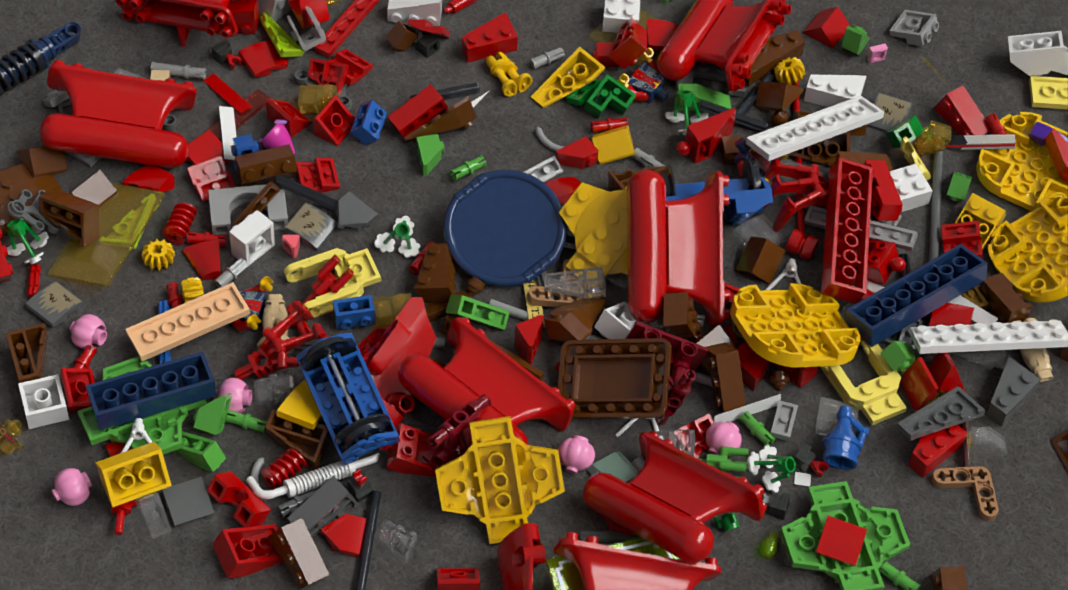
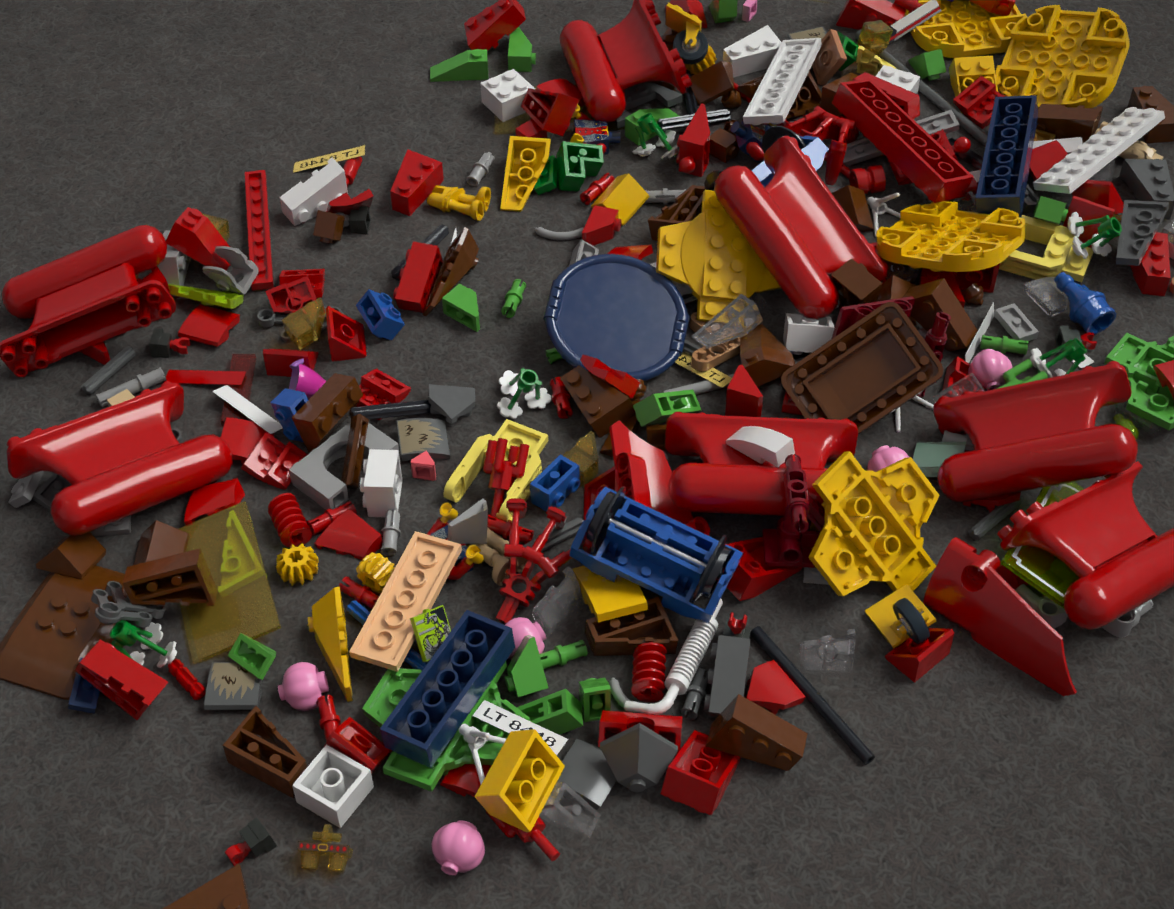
camera: 35 degrees left, 5 degrees down
(78, 293) = (252, 655): none -> bright green slope
(134, 309) = (331, 636): none -> yellow wedge
(170, 444) = (510, 722): none -> white sticker
(177, 49) = (108, 370): none -> dark grey axle
(183, 346) = (430, 630): none -> piece
(215, 512) = (638, 757): none -> dark grey slope
(234, 459) = (594, 697): none -> bright green slope
(270, 302) = (470, 525): none -> light grey slope
(456, 265) = (620, 380): none -> red slope
(469, 551) = (901, 617): none -> yellow plate
(484, 377) = (762, 444): none -> white slope
(783, 55) = (690, 41): none -> plate
(881, 130) = (829, 58): none -> nougat plate
(913, 399) = (1107, 231): none -> plant

